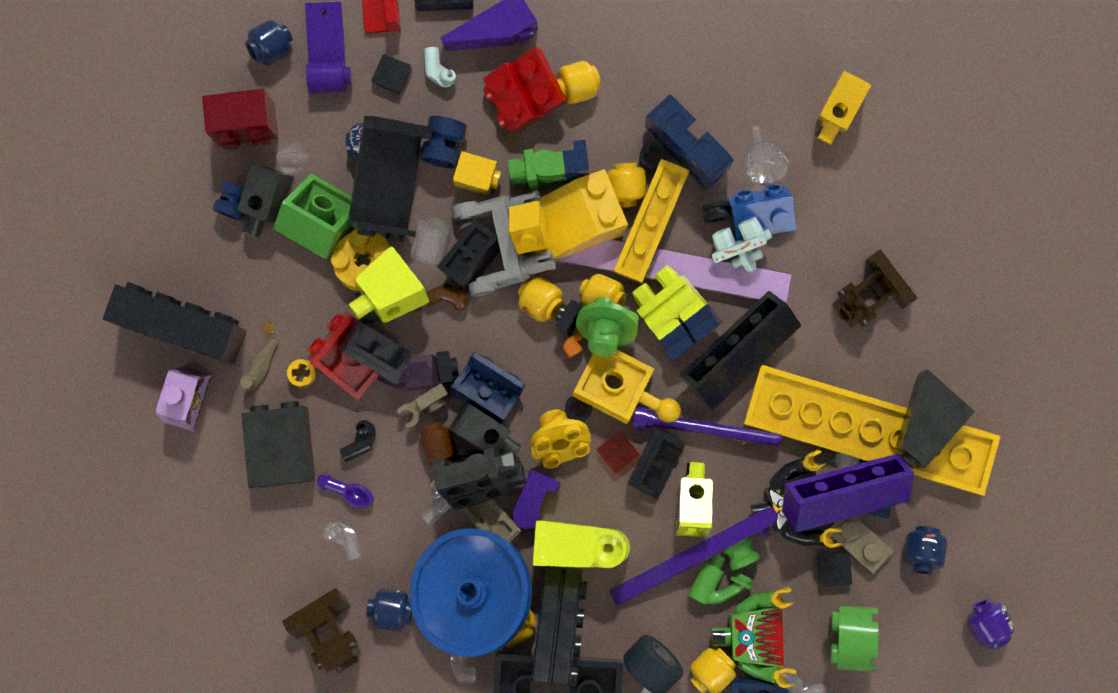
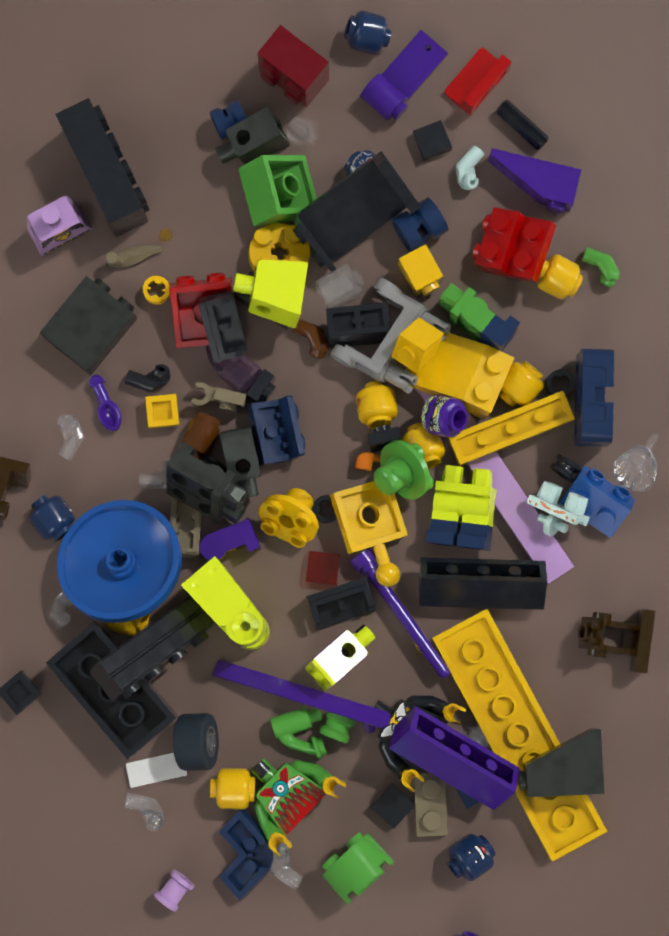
camera: 40 degrees right, 0 degrees up
(392, 455) = (162, 411): none -> yellow plate
(597, 259) = (444, 416): none -> dark purple head
(601, 41) = (606, 265): none -> bright green arm

